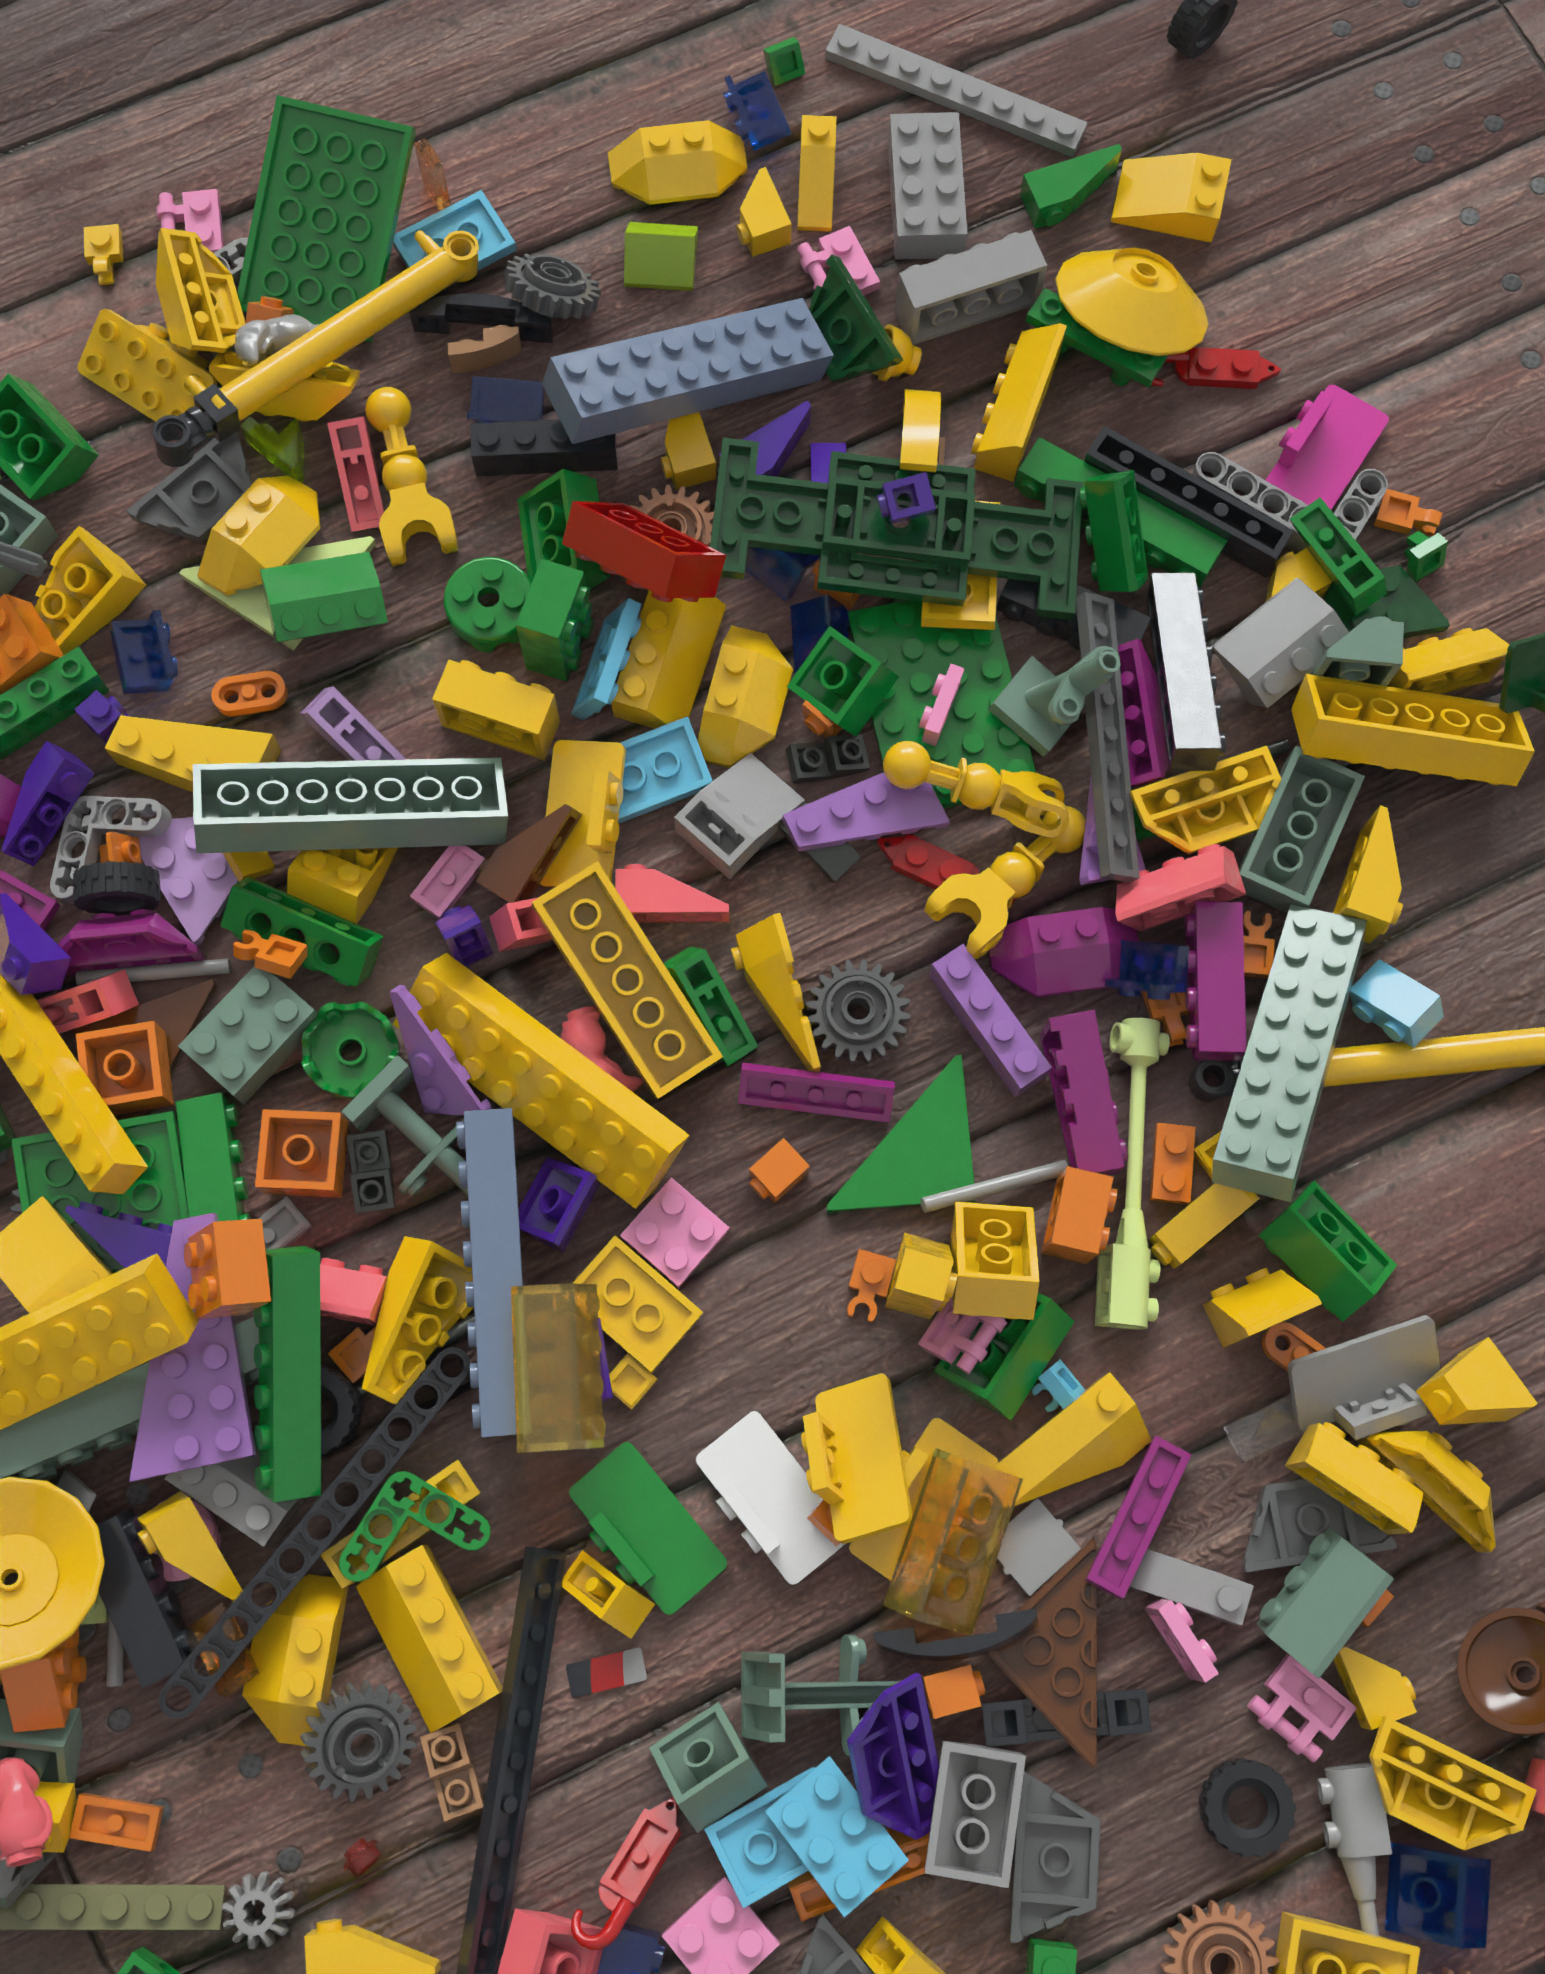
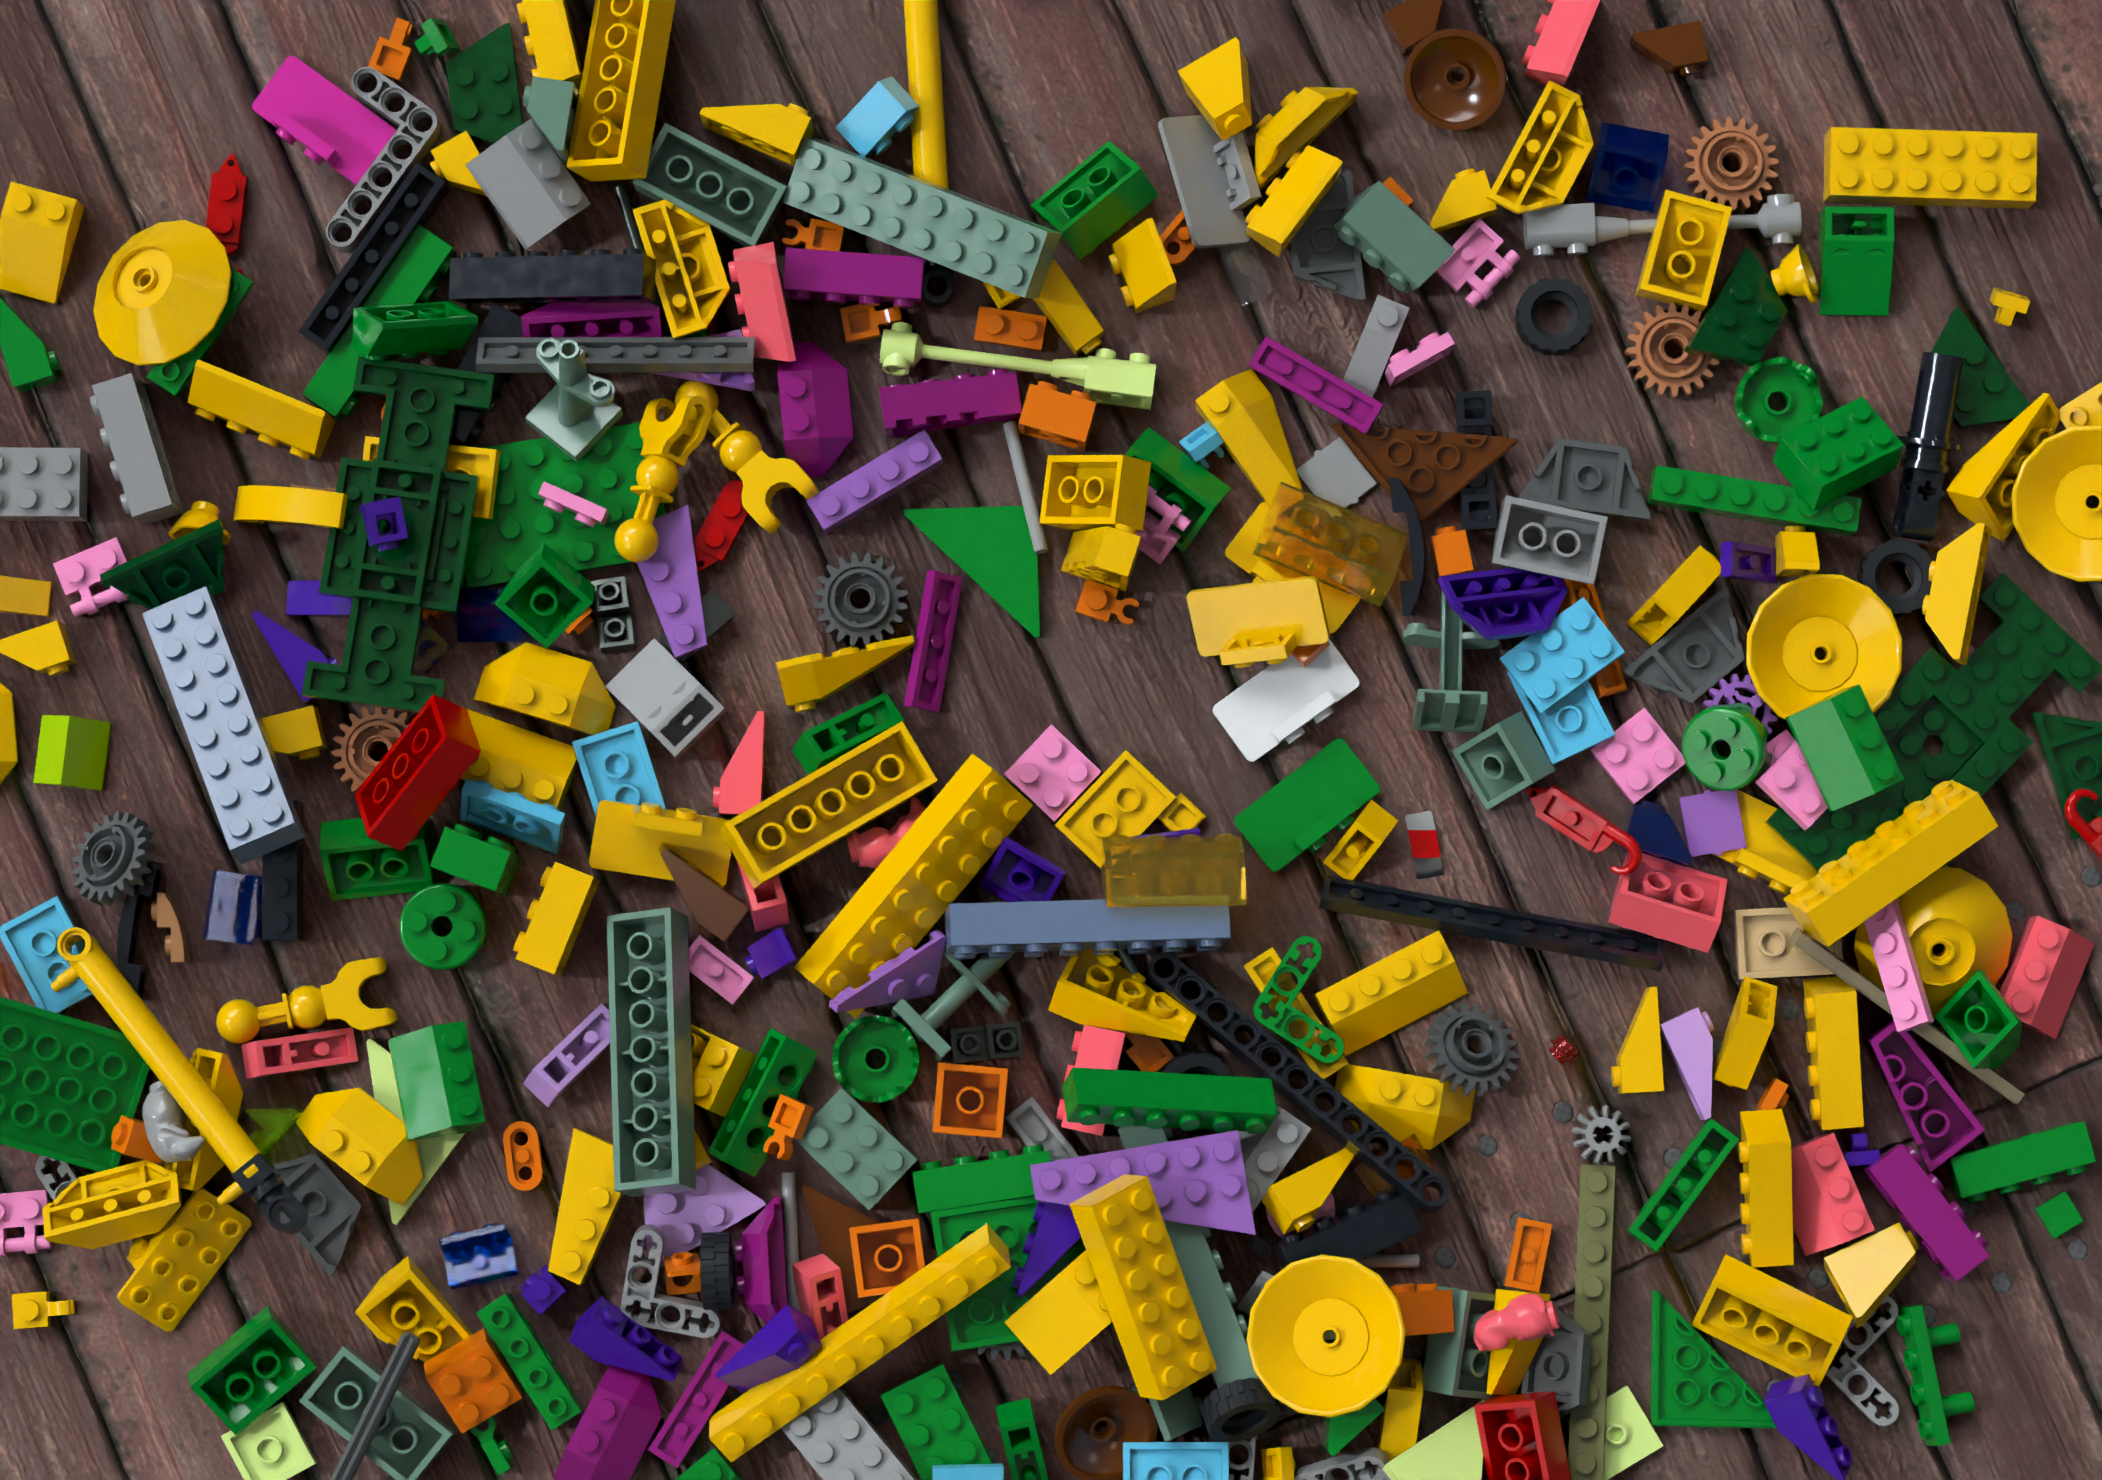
camera: 85 degrees left, 10 degrees up
(227, 1269) = (1085, 1144): orange brick -> none
(453, 1773) = (1500, 974): medium nougat slope -> none
(777, 1171) = (1004, 679): orange brick -> none
(1151, 968) = (839, 334): clear blue bracket -> none
(1340, 556) = (444, 123): green slope -> none

